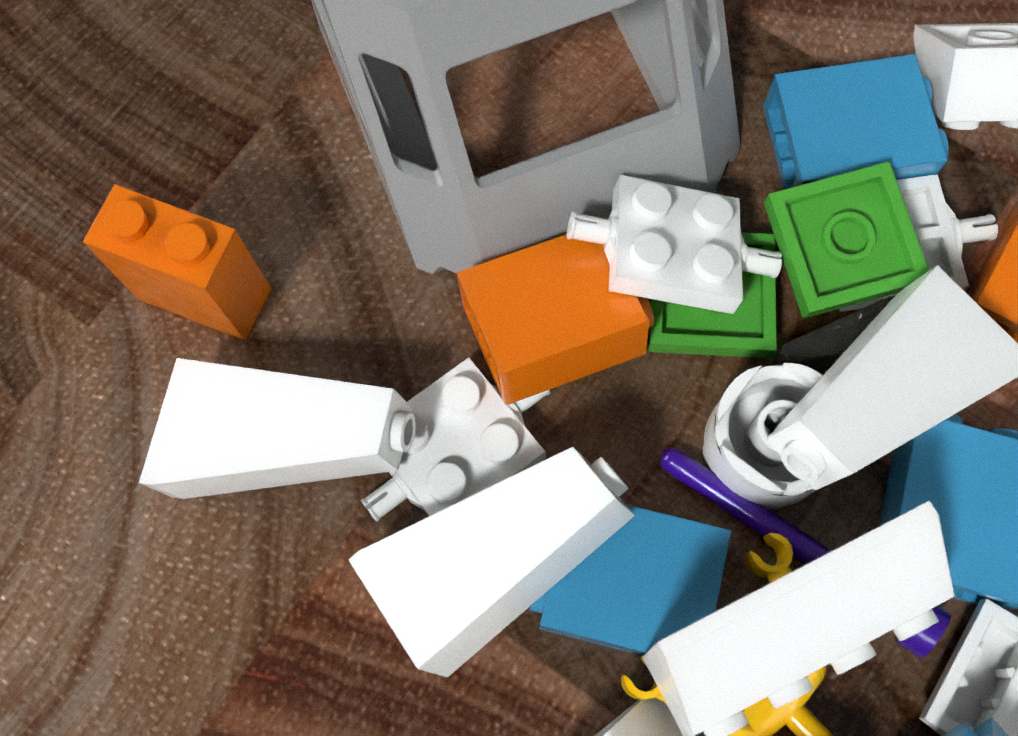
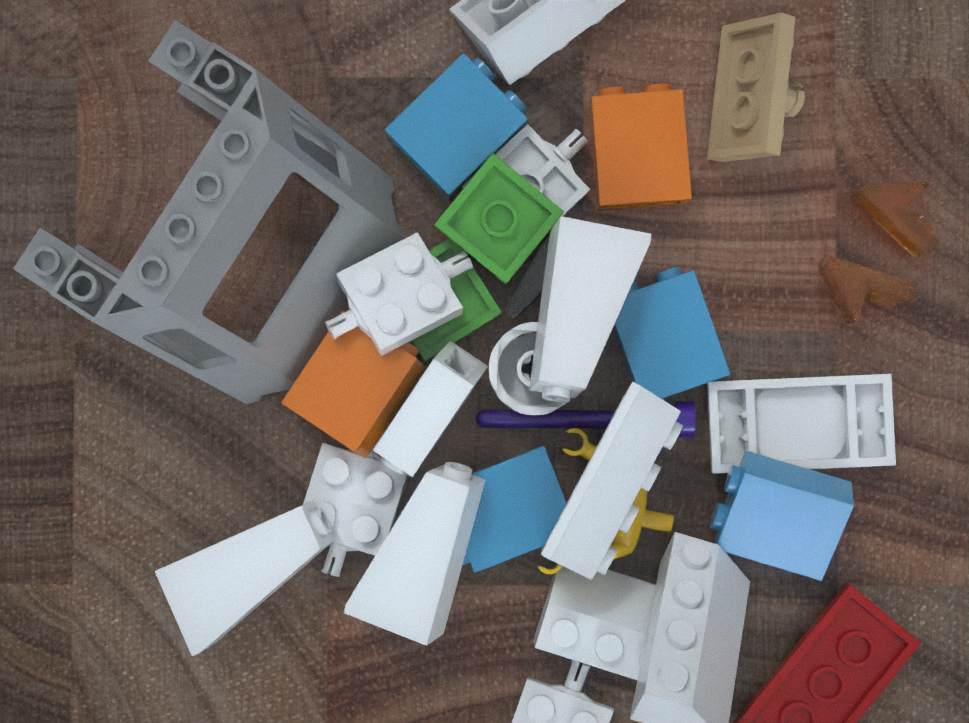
camera: 40 degrees left, 15 degrees up
(179, 261) = (113, 517): orange brick -> none
(621, 387) = (429, 409): none -> white brick

